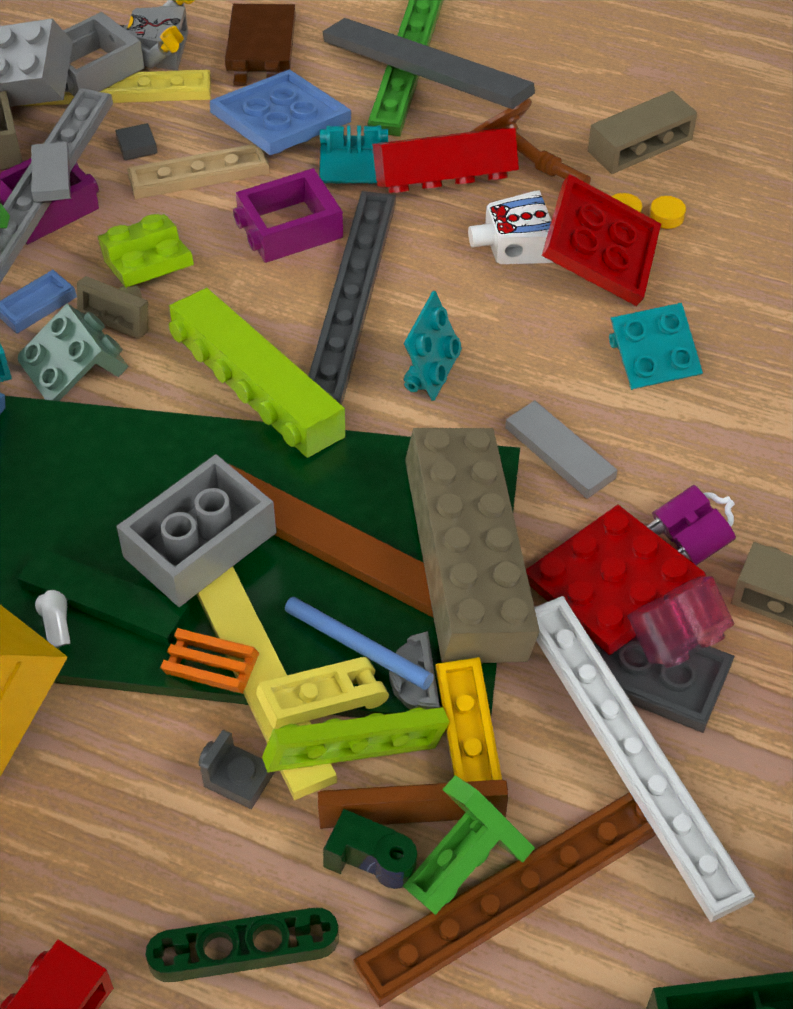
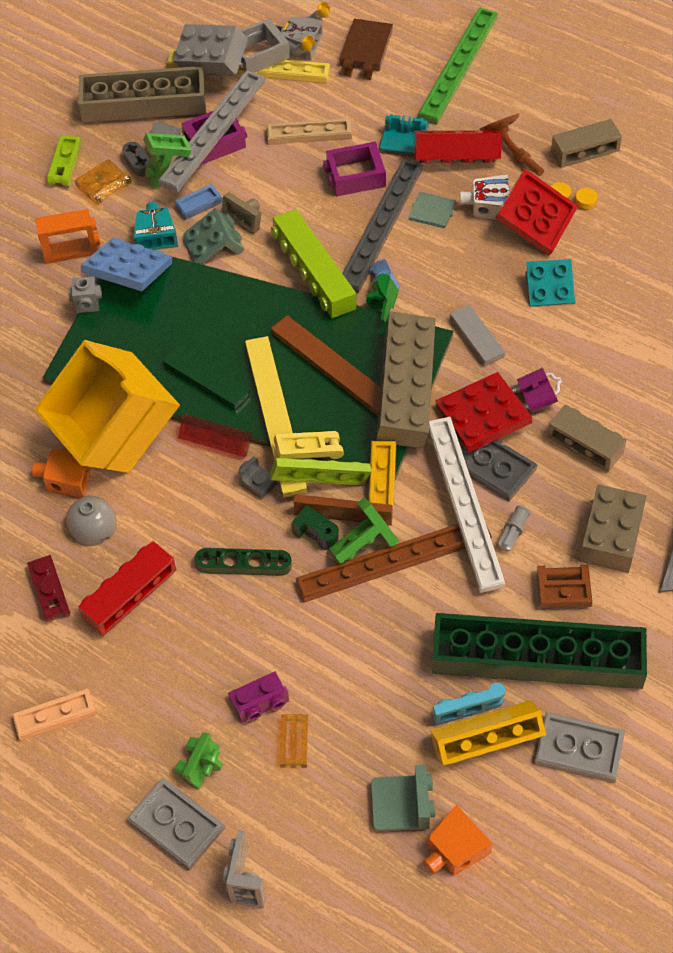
camera: 15 degrees right, 5 degrees up
(50, 171) = (219, 124): light grey tile -> none
(53, 609) = (178, 381): white arm -> none
(136, 141) = (275, 106): dark grey tile -> none
(139, 701) = (214, 435): none -> clear red plate
(144, 250) = (266, 179): lime plate -> none
(180, 651) = (259, 412): orange tile -> none
(197, 529) = (260, 349): light grey brick -> none
(279, 111) = (365, 99): medium blue plate -> none
(359, 643) = (334, 423): medium blue bar -> none
(384, 396) = (384, 289): none -> green animal
(418, 652) = (360, 444): light grey tile -> none
(428, 262) = (432, 210): none -> clear light blue piece
(430, 63) = (463, 79): dark grey tile -> none
(431, 348) = (416, 264): teal hinge -> none
(681, 621) = (509, 440): clear pink brick -> none
(731, 783) = (513, 528): none -> light grey axle

